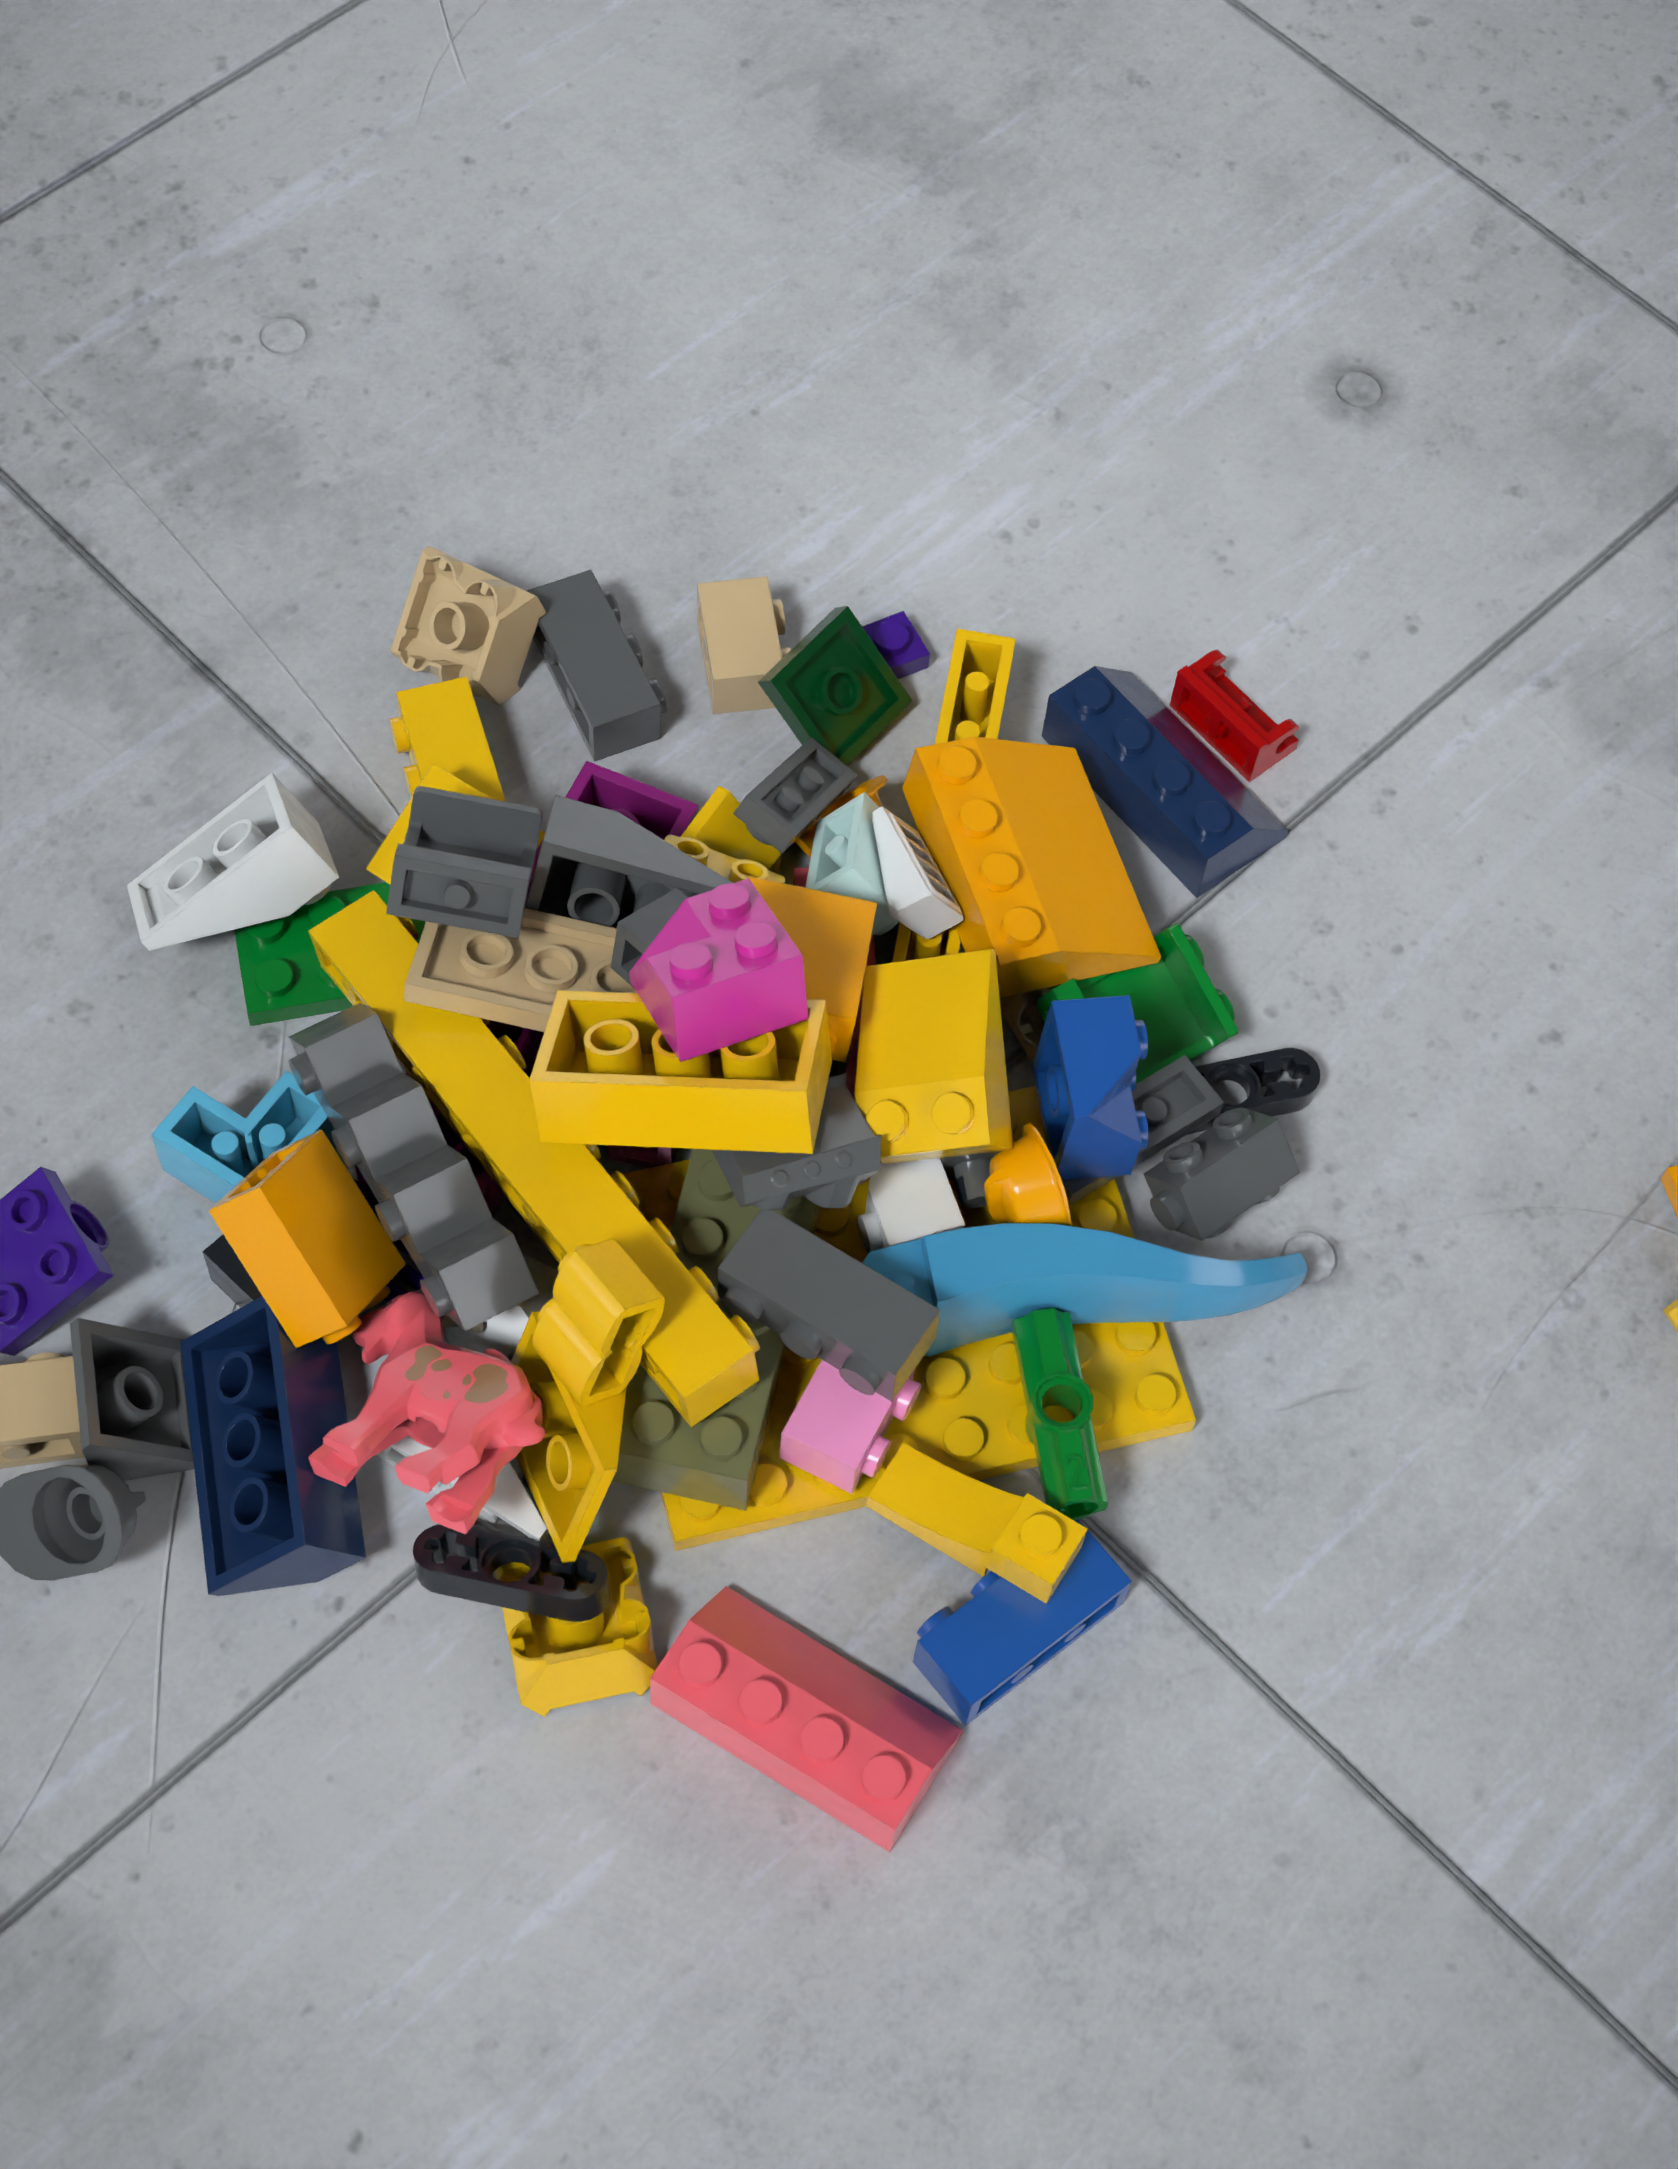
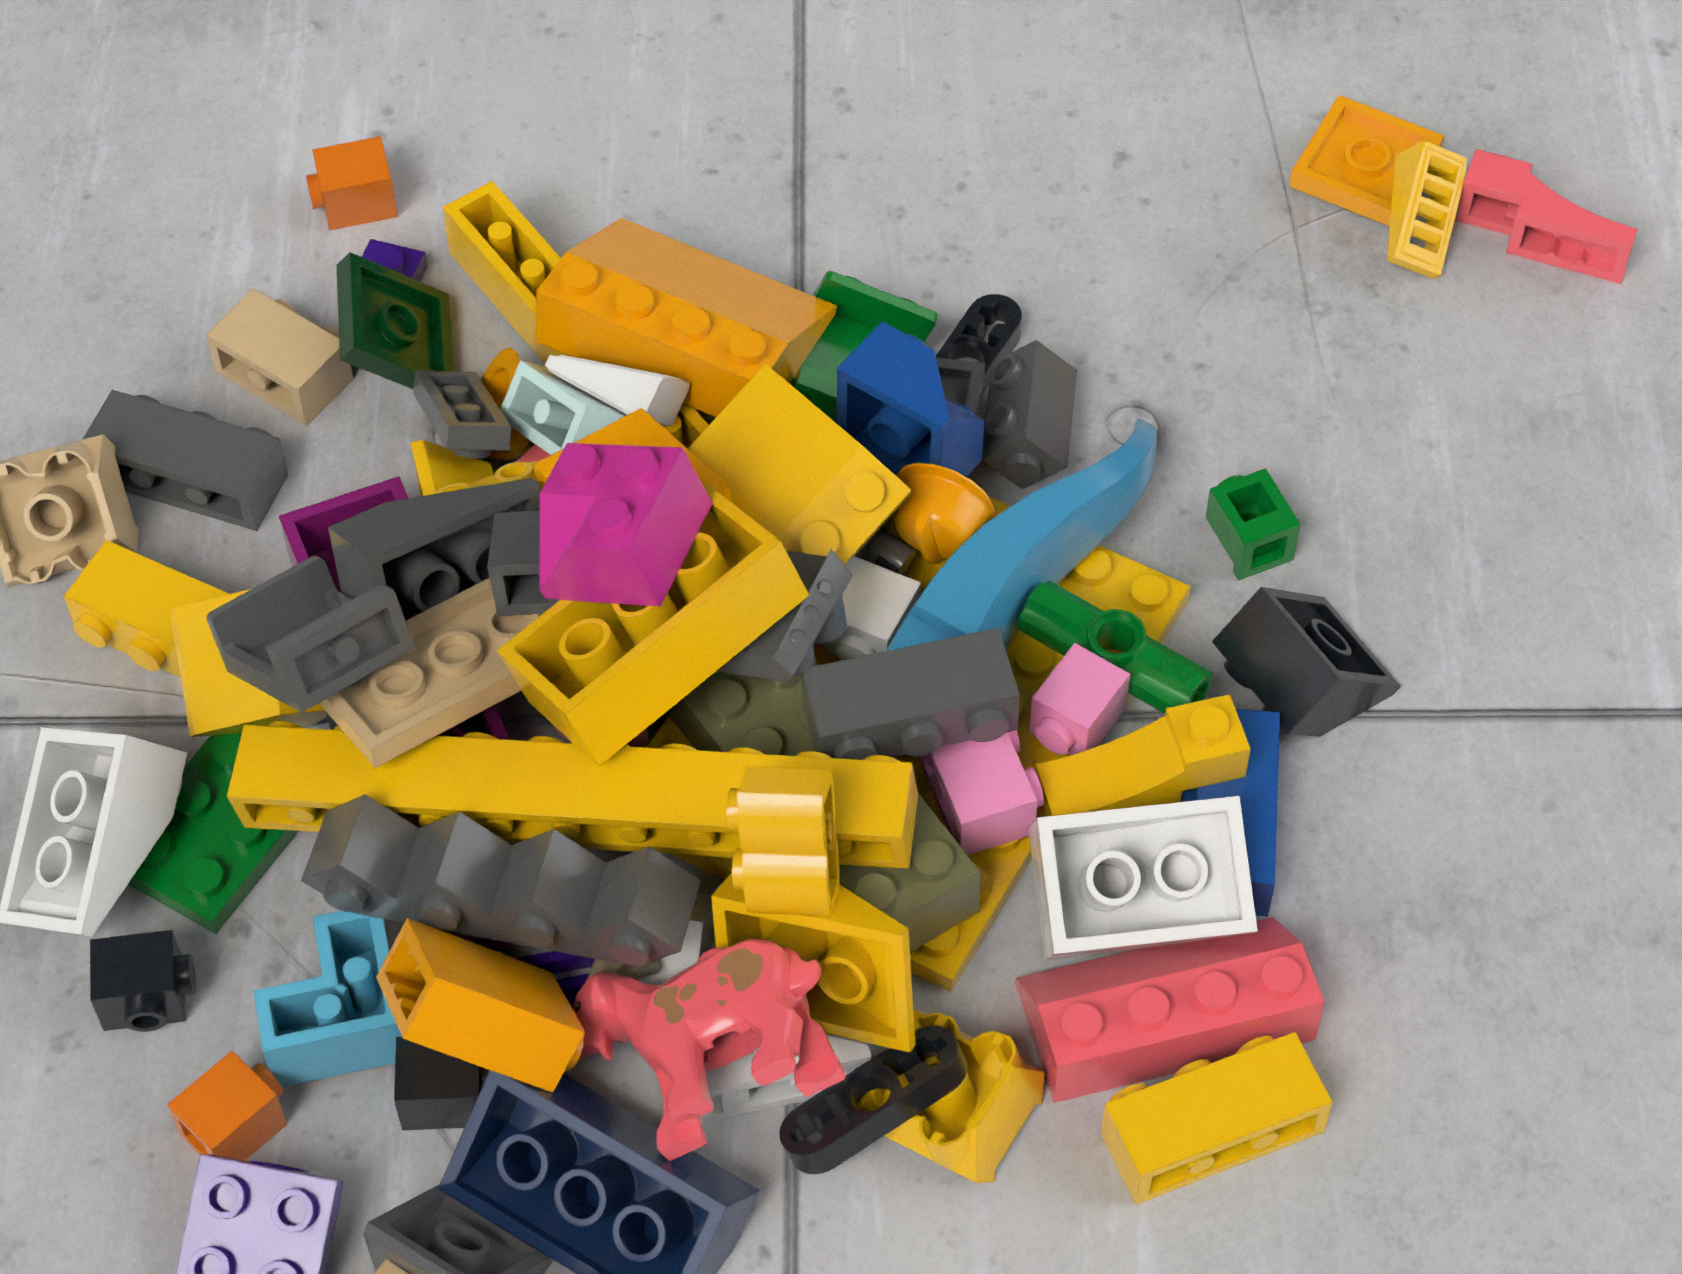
camera: 40 degrees left, 5 degrees down
(107, 1157) = (229, 1109): none -> orange brick
(155, 1011) = (140, 980): none -> black brick
(736, 1829) = (1214, 1116): none -> yellow brick
(872, 1601) = (1141, 877): none -> white slope
(936, 557) = (352, 183): none -> orange brick
(984, 1427) = (1078, 702): none -> bright pink brick
(1160, 778) = (710, 205): dark blue slope -> none
(1212, 1562) = (1302, 661): none -> black slope
(1229, 718) = (684, 128): red hinge -> none
(1288, 1437) = (1253, 523): none -> green brick

